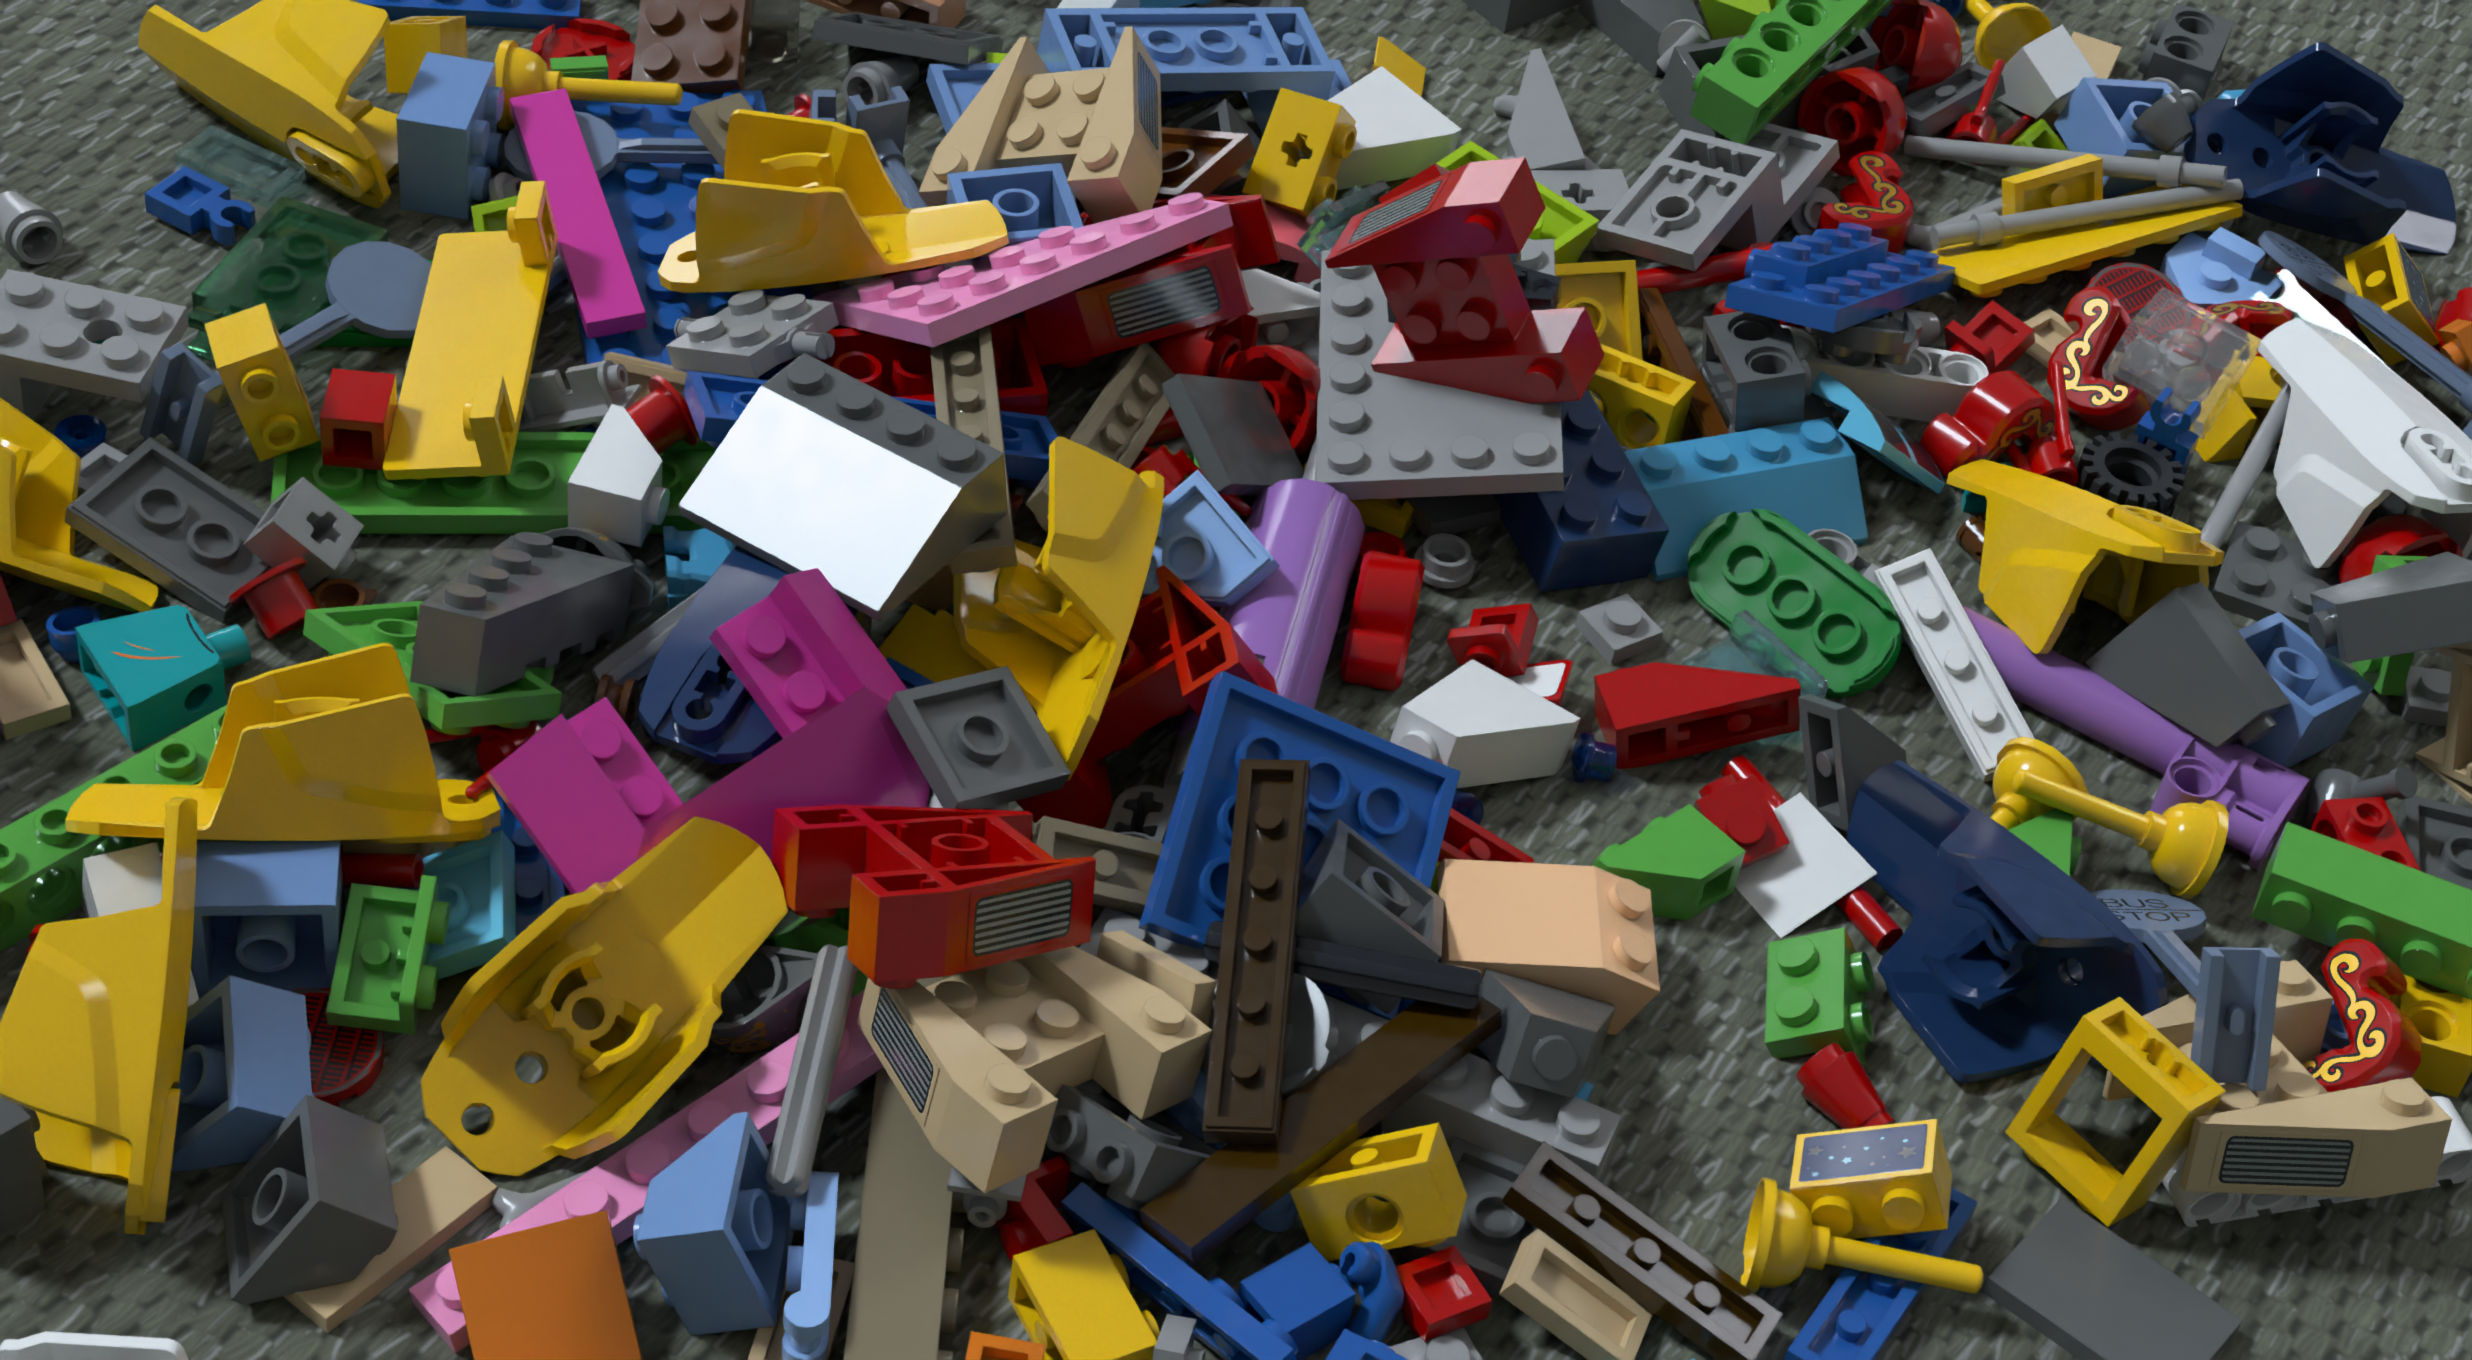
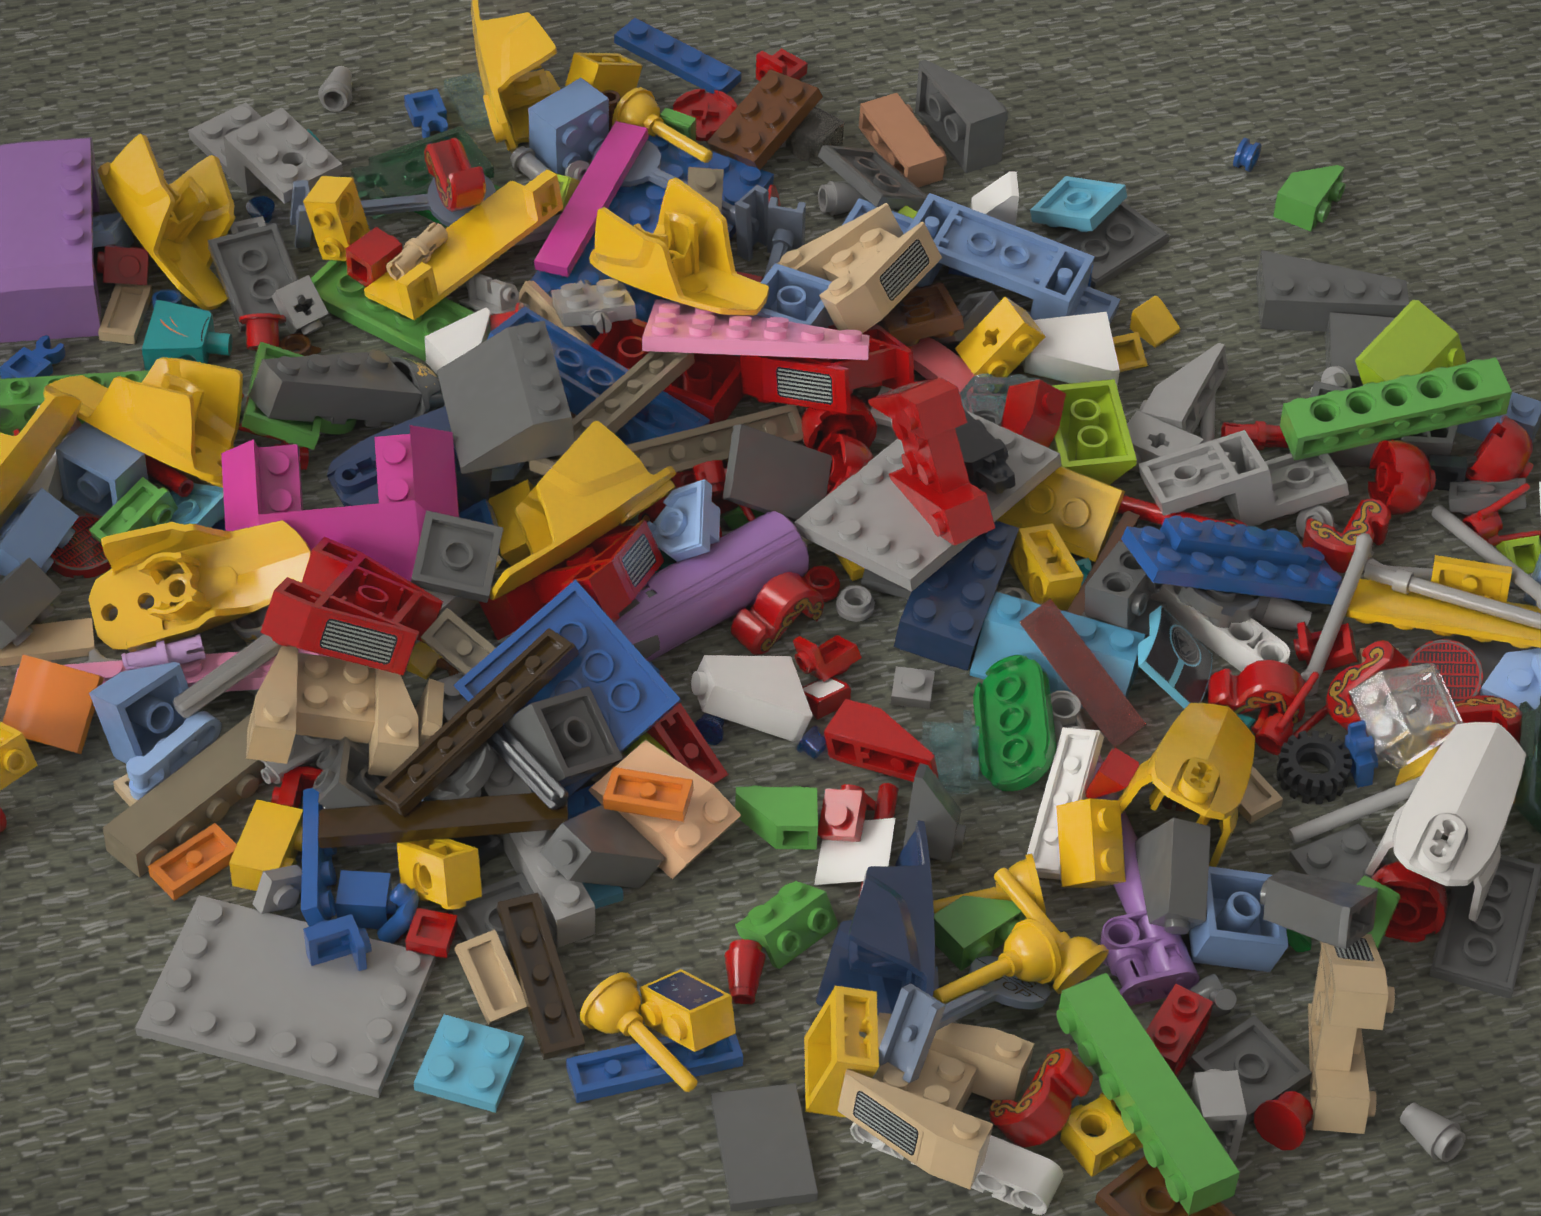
camera: 45 degrees right, 5 degrees up
(370, 257) = (455, 180): none -> red animal
(421, 379) = (417, 250): none -> tan pin
(423, 213) = (524, 160): none -> light grey pin
(671, 1125) = (178, 651): none -> lavender pin
(1552, 920) = (648, 794): none -> orange plate
(1643, 145) = (1259, 433): none -> red pin
(1810, 492) = (1082, 673): none -> clear red plate
(1934, 213) = (1362, 552): none -> light grey piece
(1997, 595) = (1113, 774): none -> red slope
(2057, 688) = (1091, 843): none -> yellow brick
(2149, 859) = (1027, 954): none -> yellow piece

